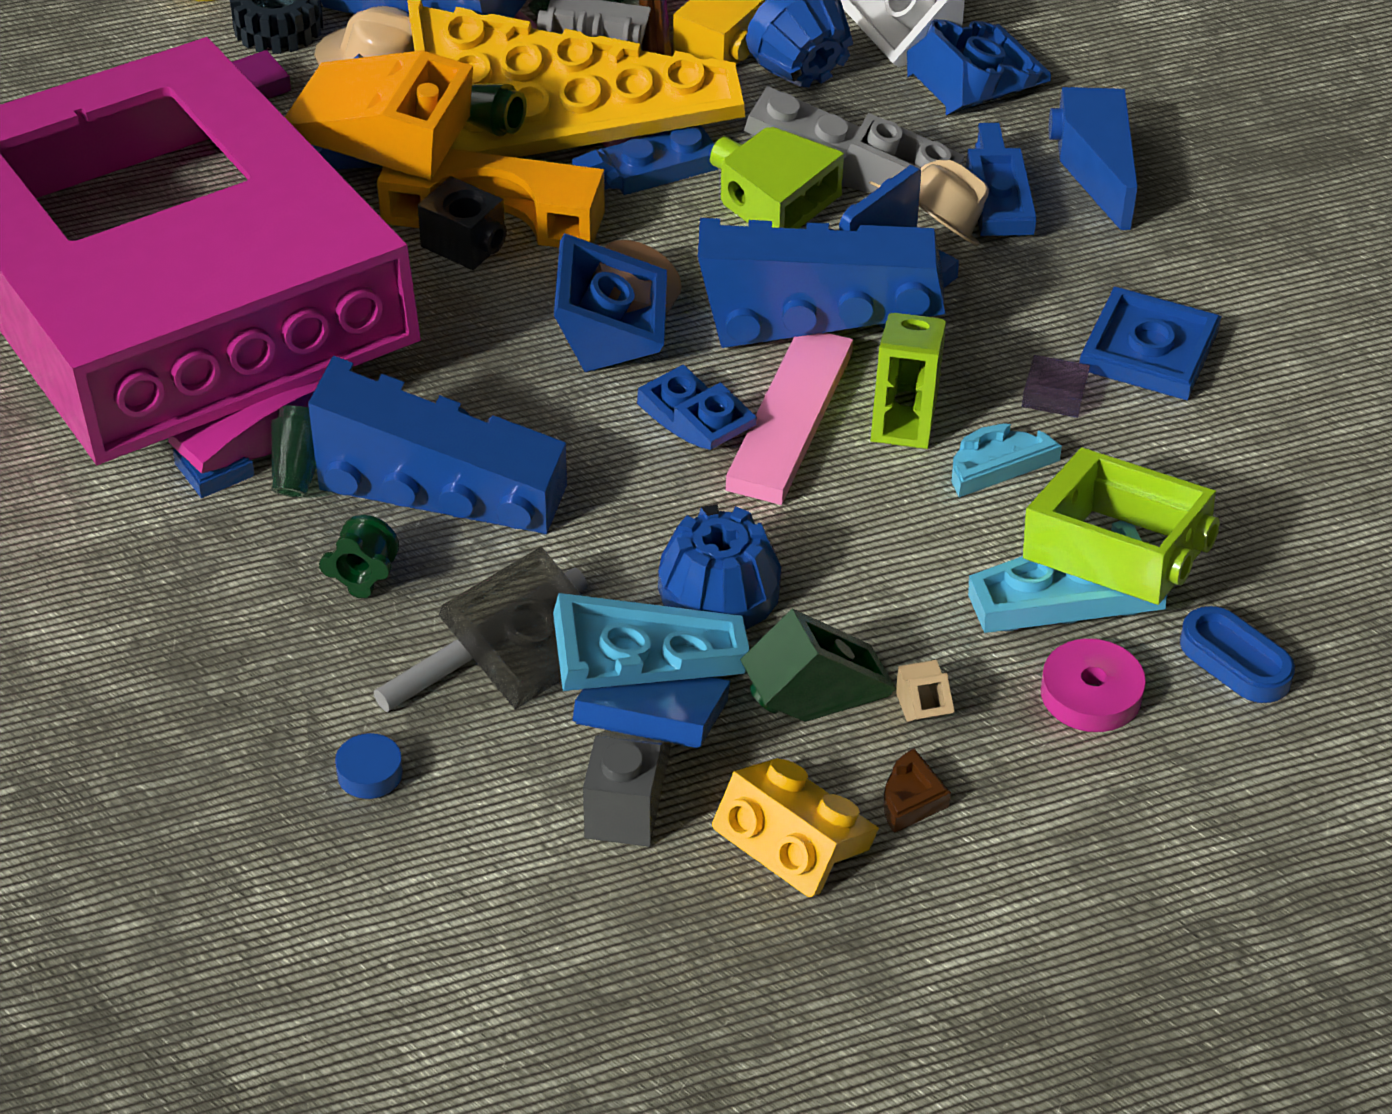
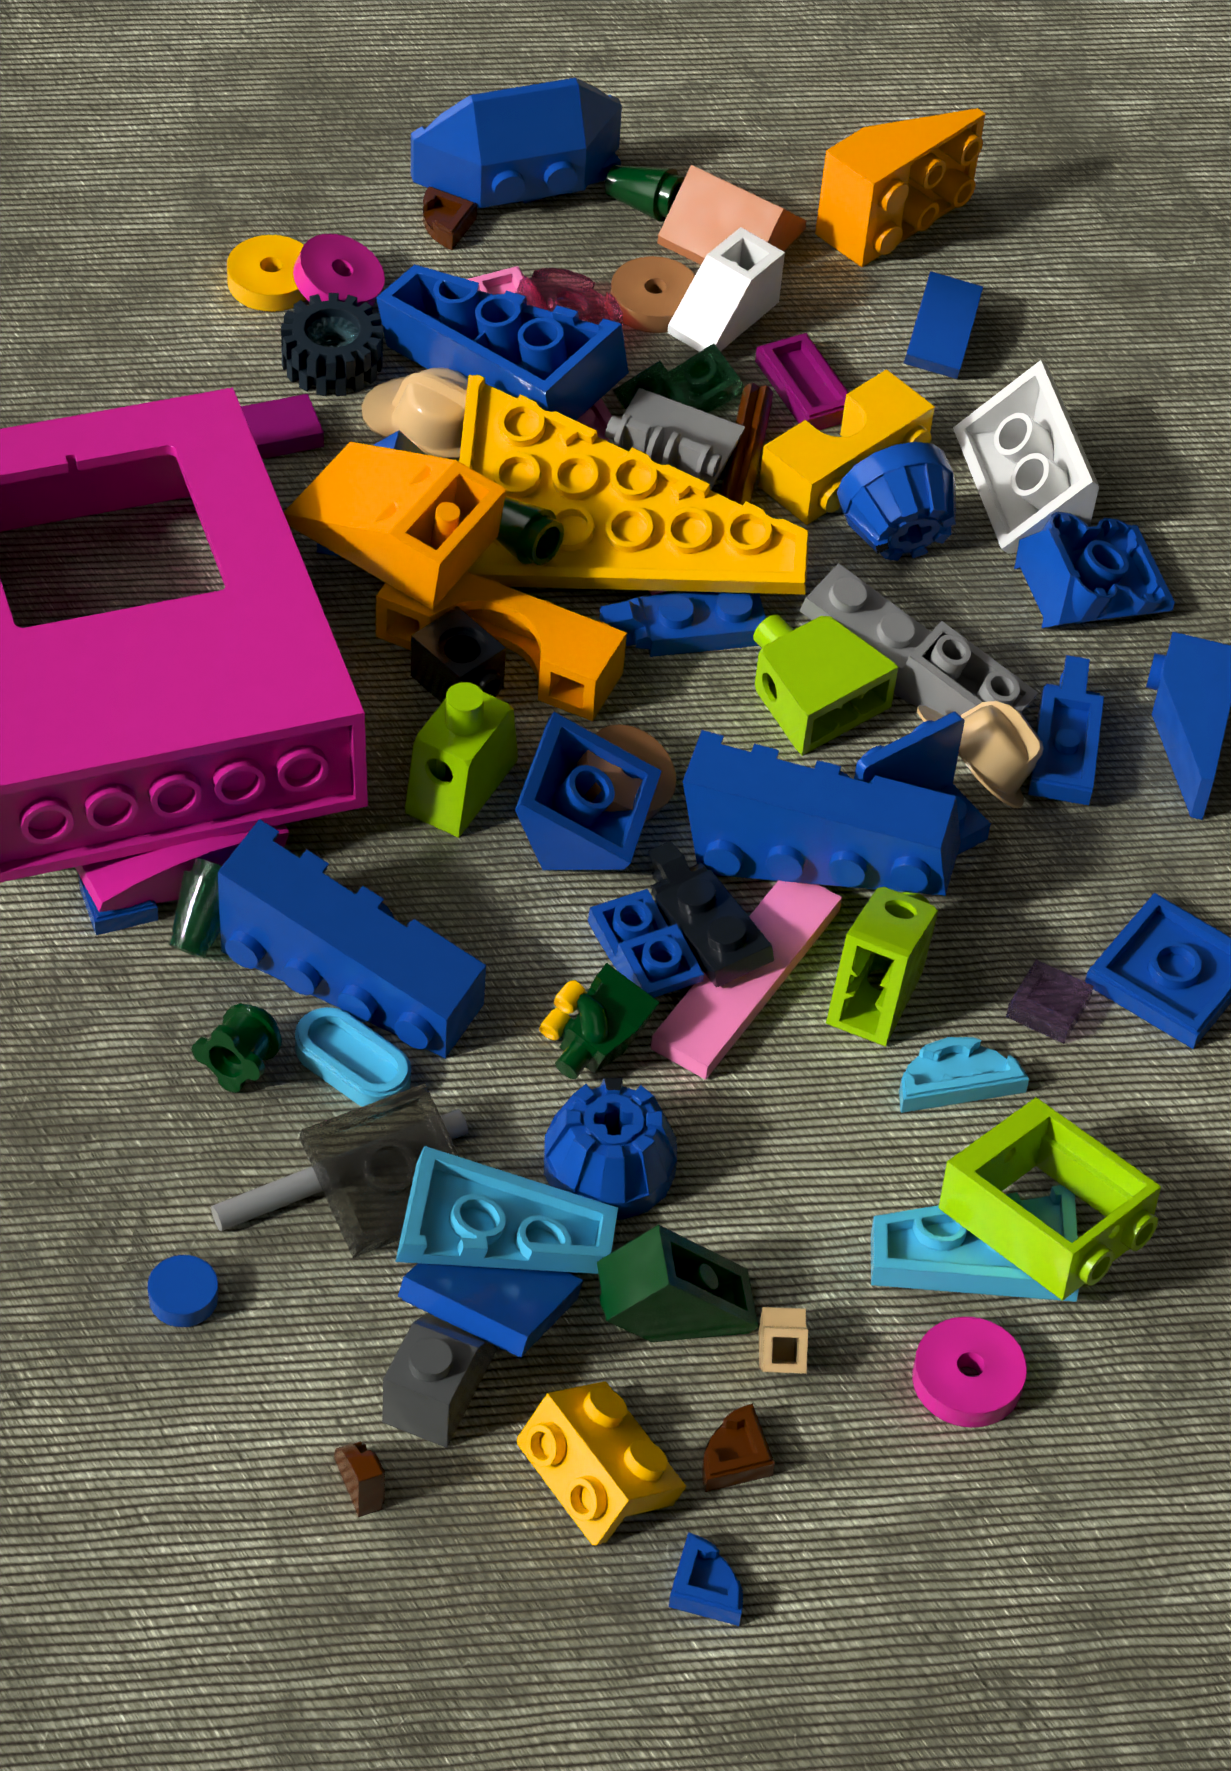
camera: 10 degrees right, 5 degrees up
(461, 545) = (351, 1056): none -> medium azure tile
(494, 266) = (475, 741): none -> lime torso
(583, 883) = (362, 1477): none -> reddish brown tile
(685, 470) = (606, 1024): none -> dark green piece
(753, 377) = (709, 917): none -> black hinge
(922, 906) = (706, 1583): none -> blue tile
(1237, 654) = (1138, 1371): blue tile -> none

